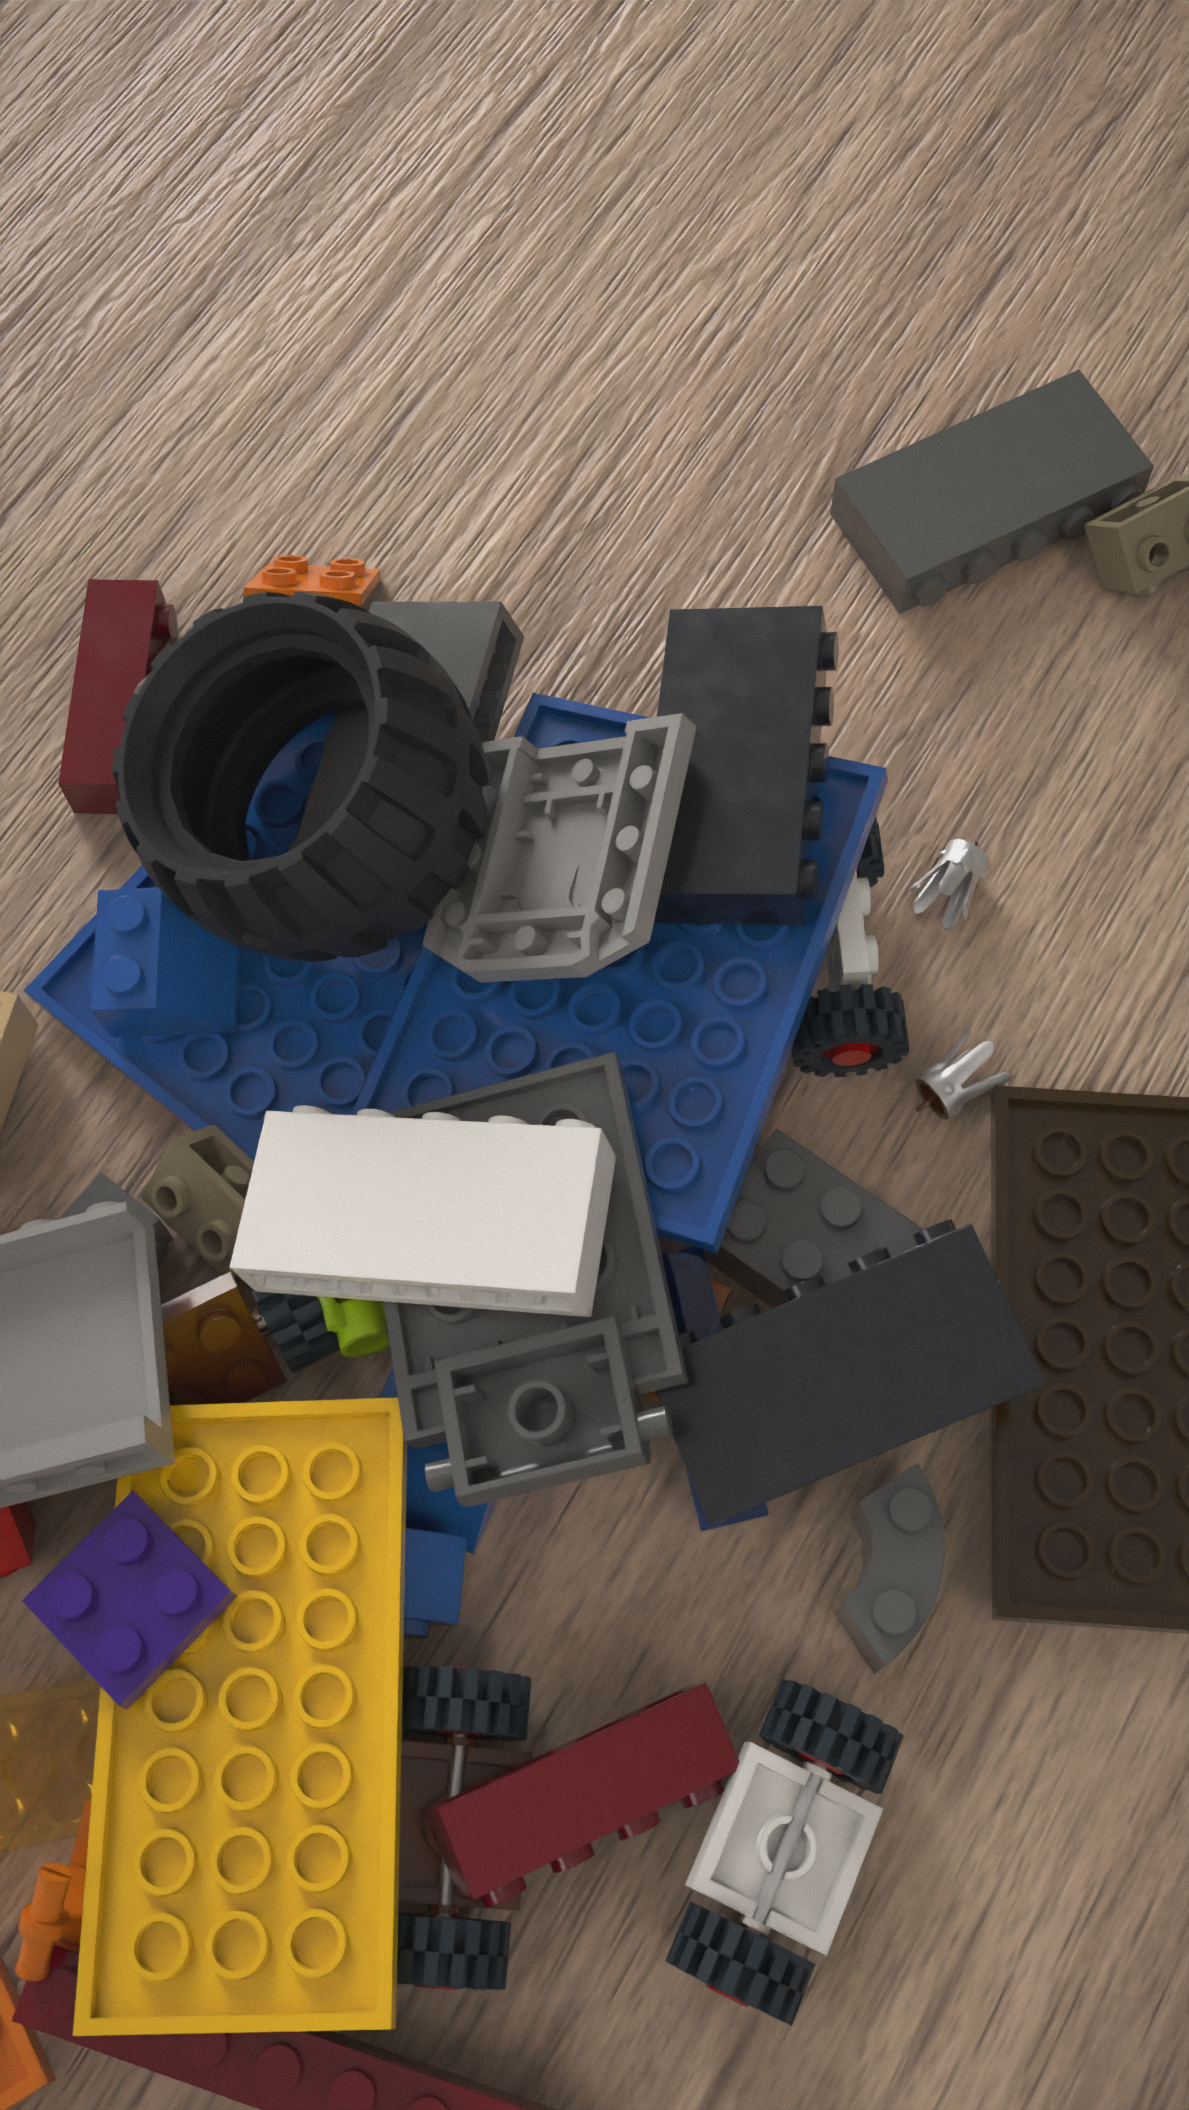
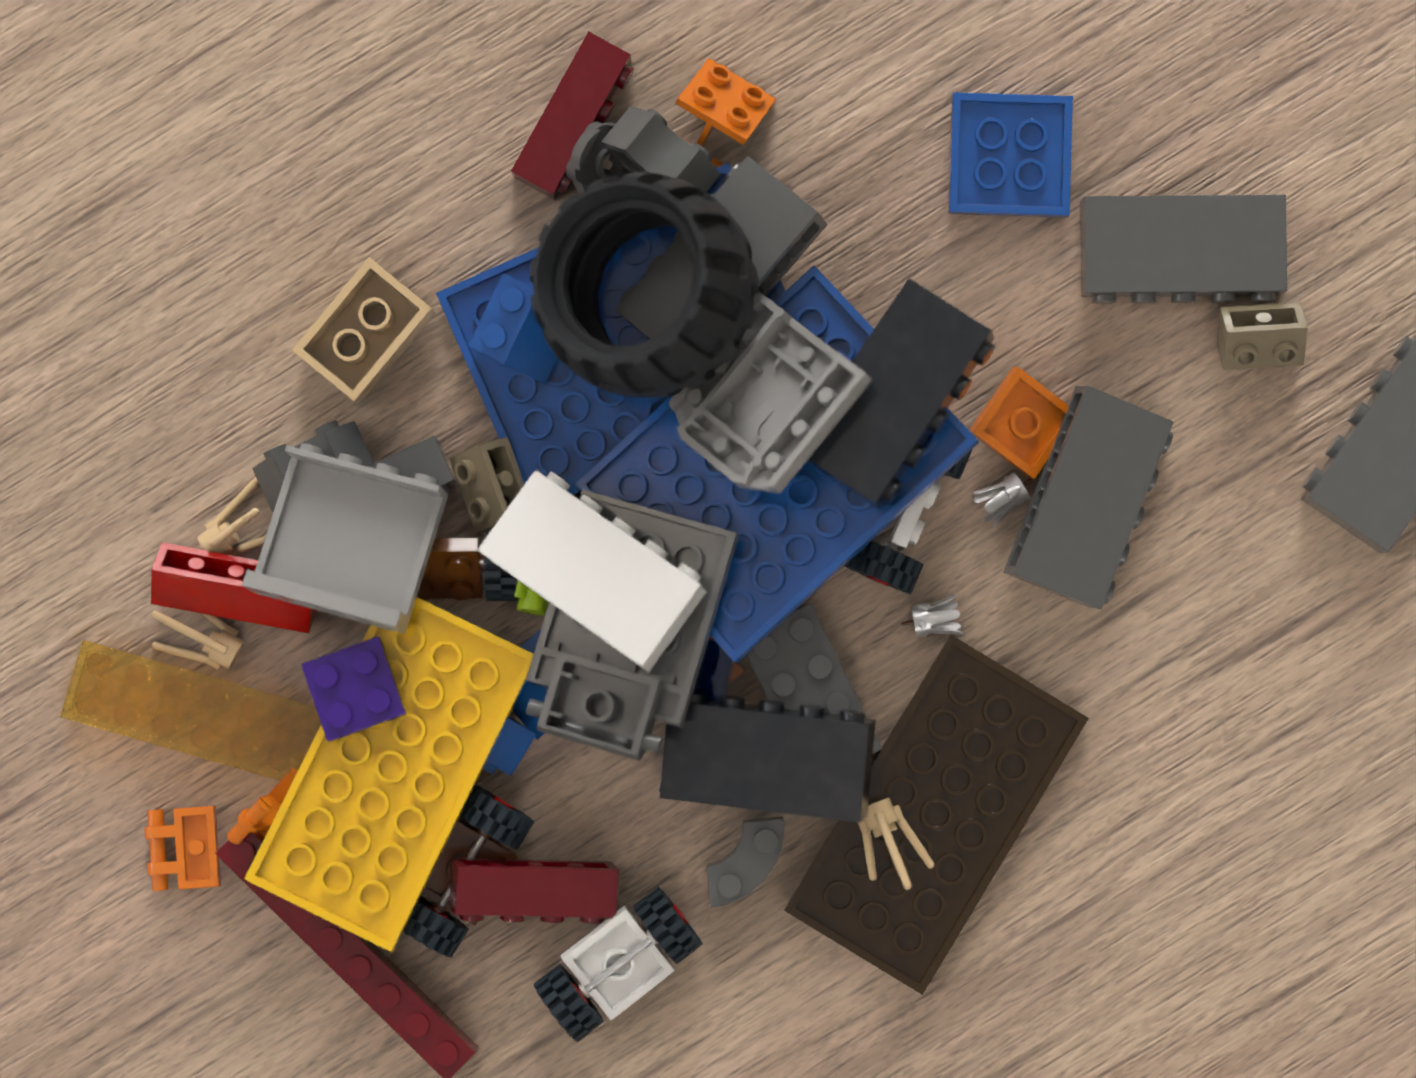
camera: 25 degrees right, 20 degrees up
(713, 493) = (1010, 154): none -> blue plate
(931, 772) = (1021, 422): none -> orange plate
(1068, 823) = (1089, 497): none -> dark grey brick
(1068, 1389) = (881, 821): none -> tan plant

